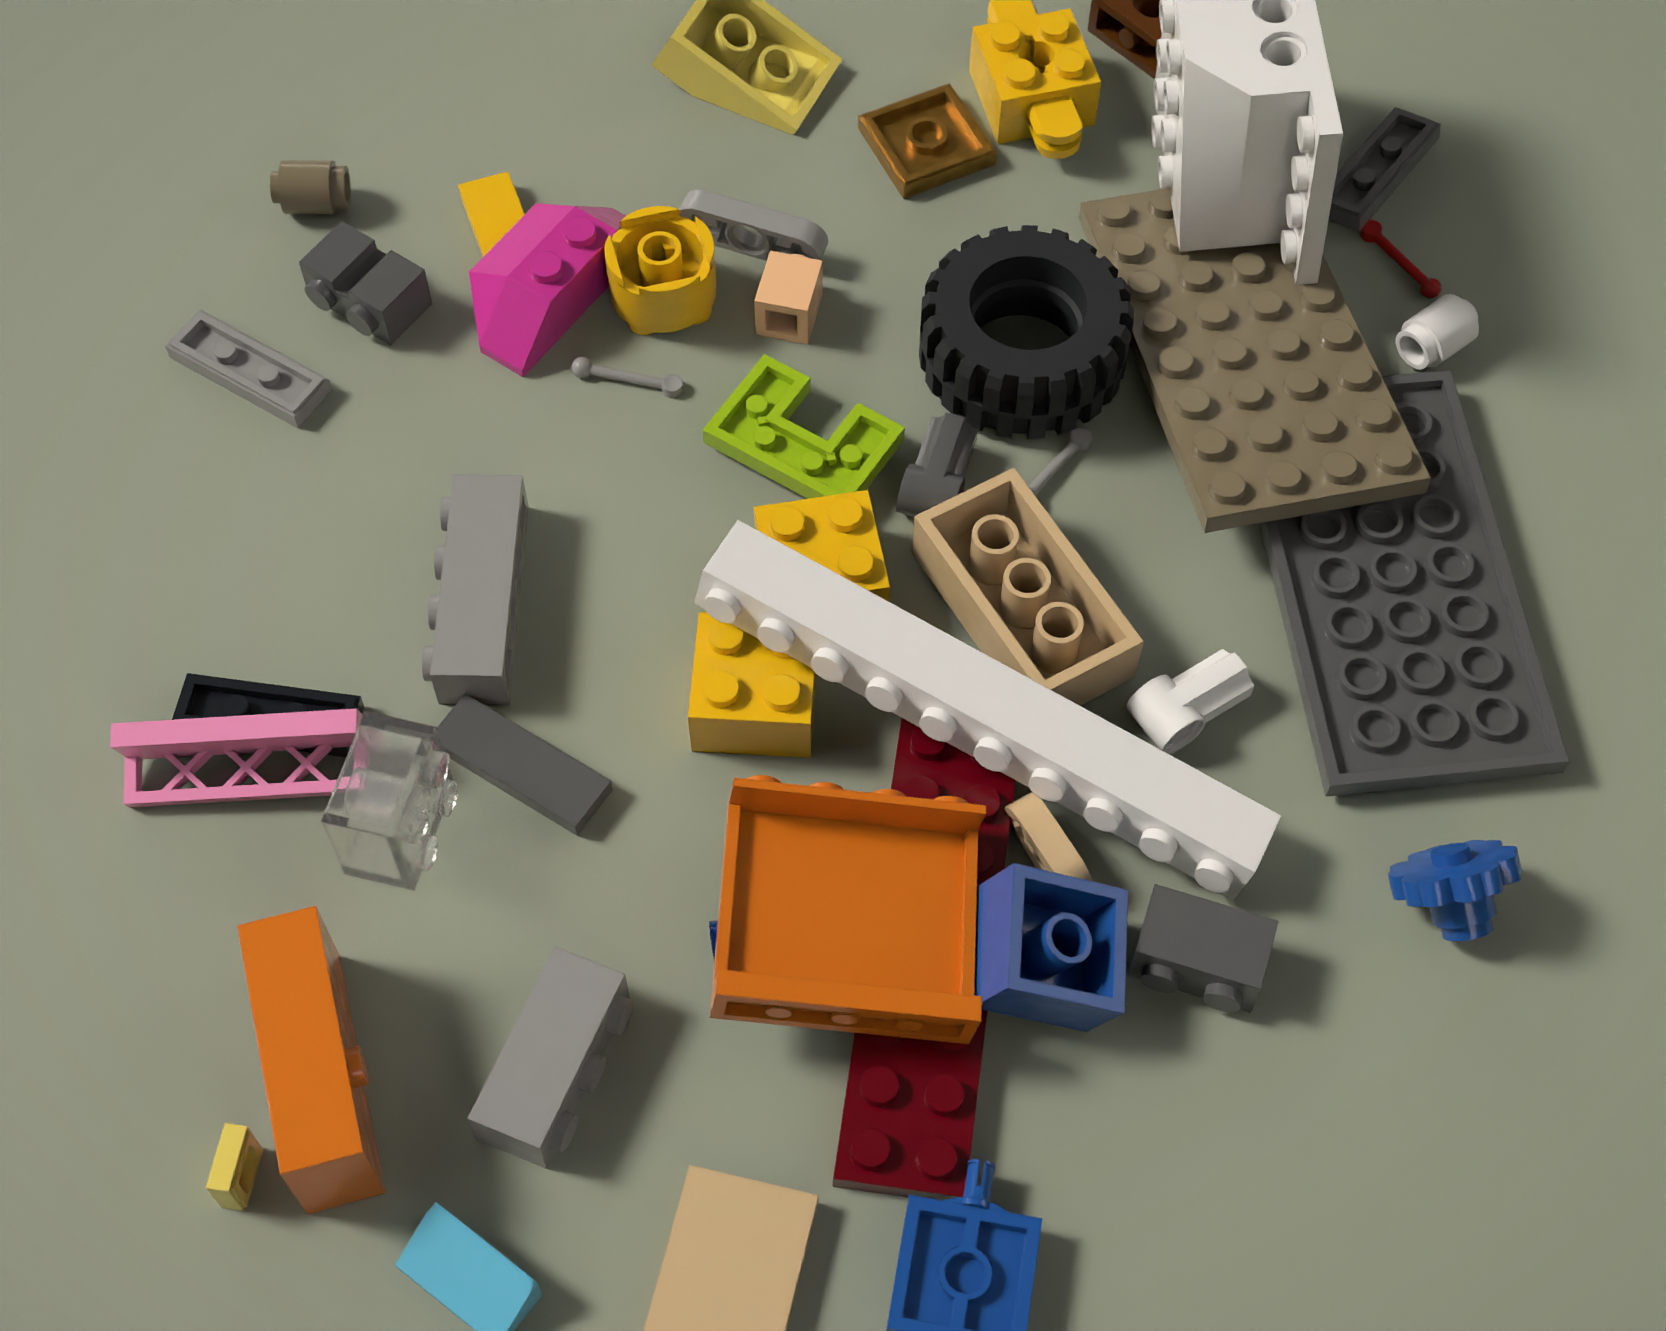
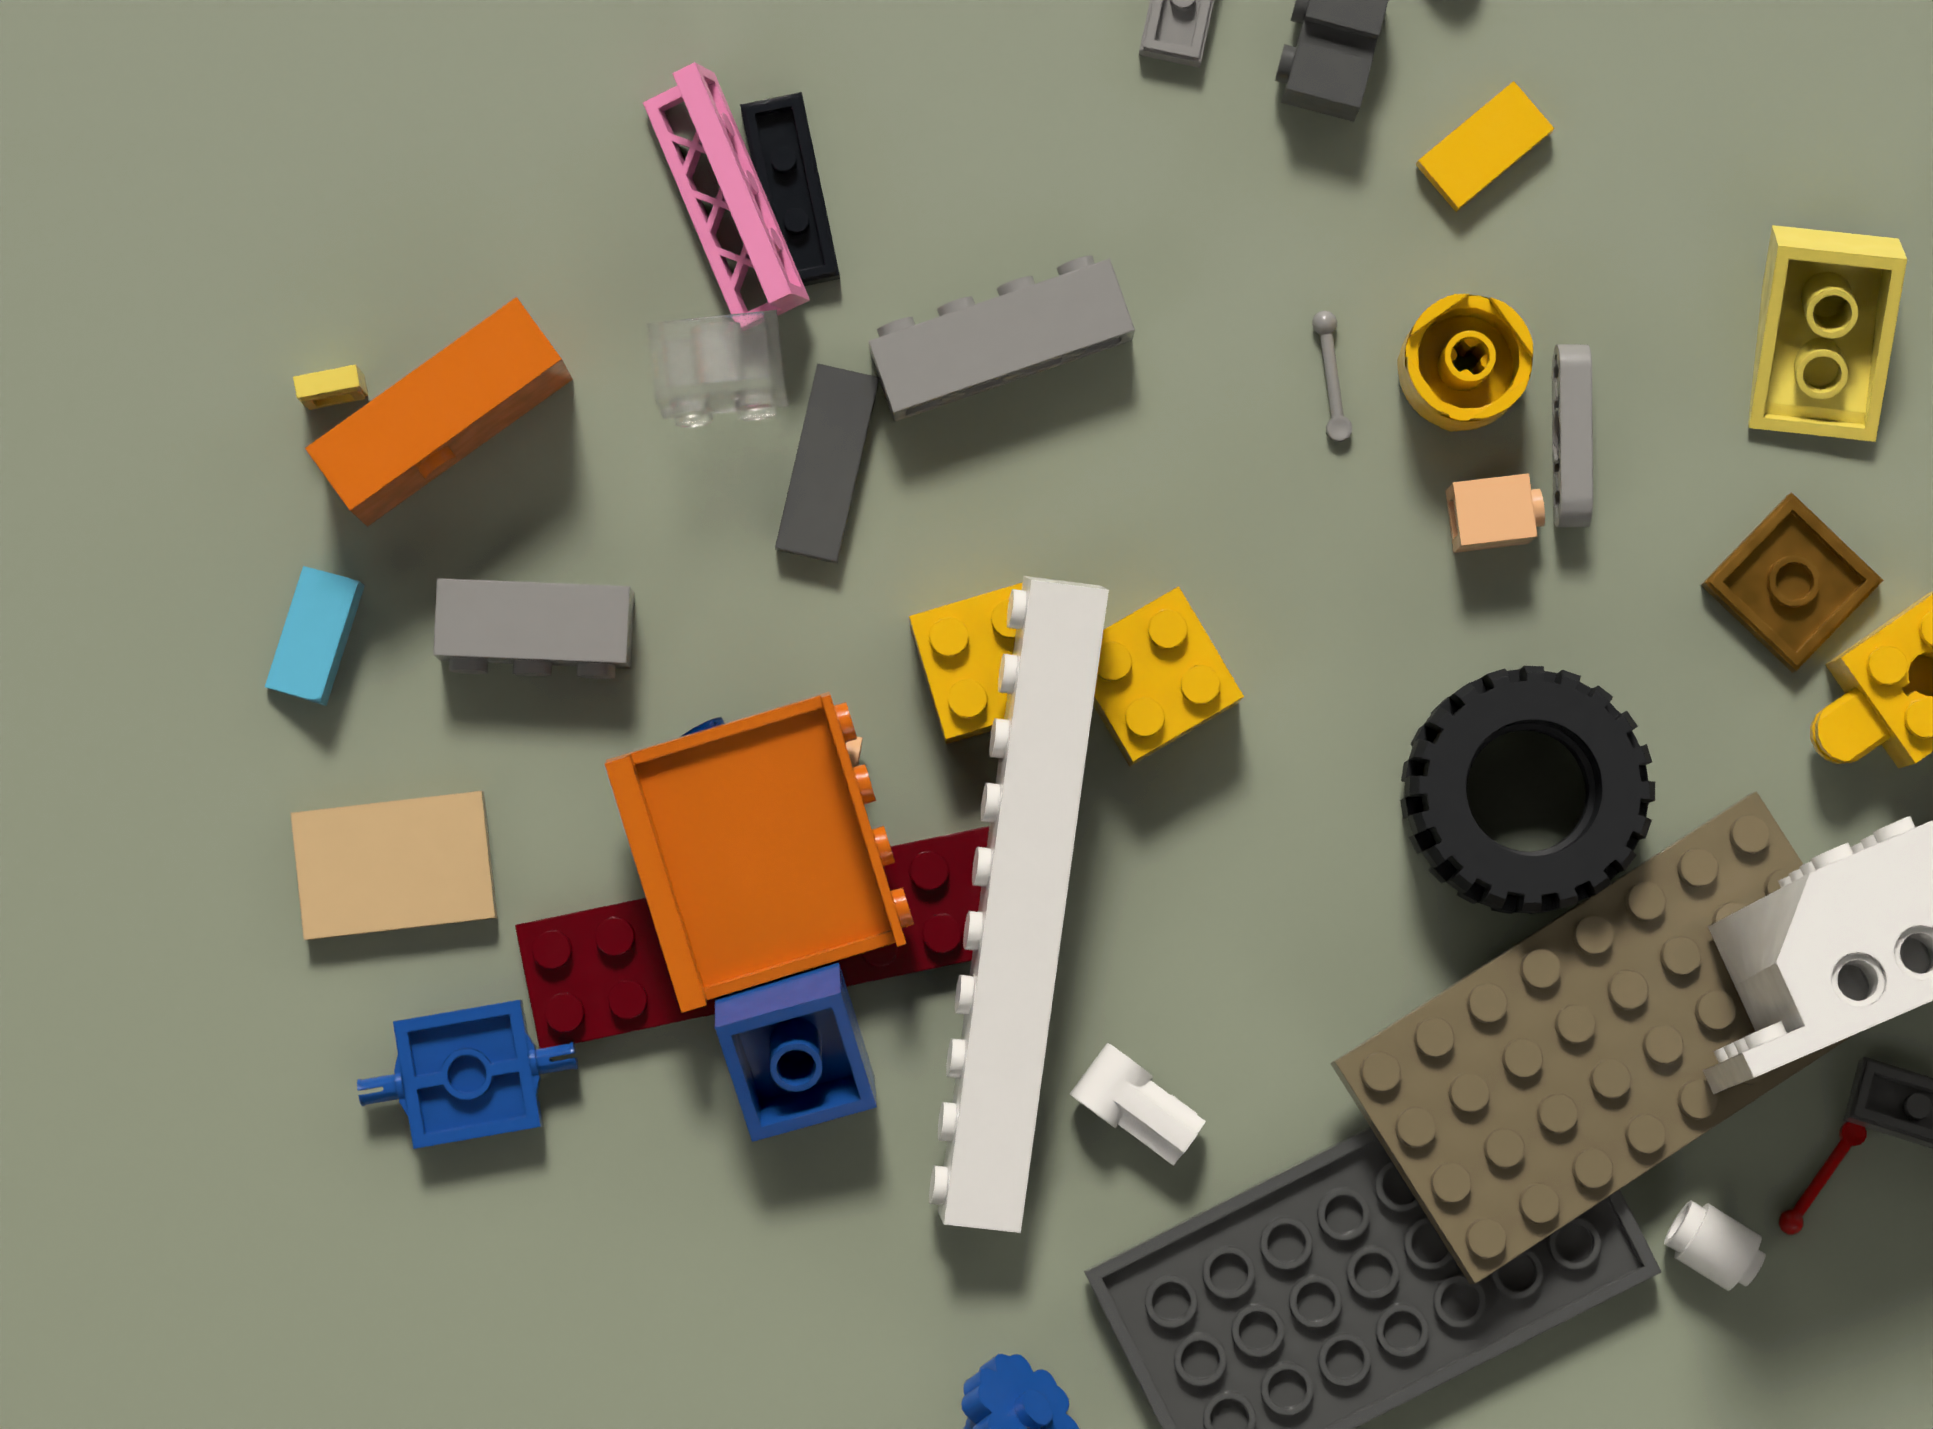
camera: 65 degrees right, 25 degrees up
(540, 281) = (1429, 234): dark pink wedge -> none
(757, 433) = (1298, 545): lime plate -> none
(939, 465) = (1303, 758): dark grey piece -> none
(1025, 590) = (1188, 899): tan brick -> none
(1044, 838) = (916, 1015): tan beam -> none
(1079, 440) = (1431, 892): light grey hinge -> none
(1203, 949) = (860, 1196): dark grey brick -> none

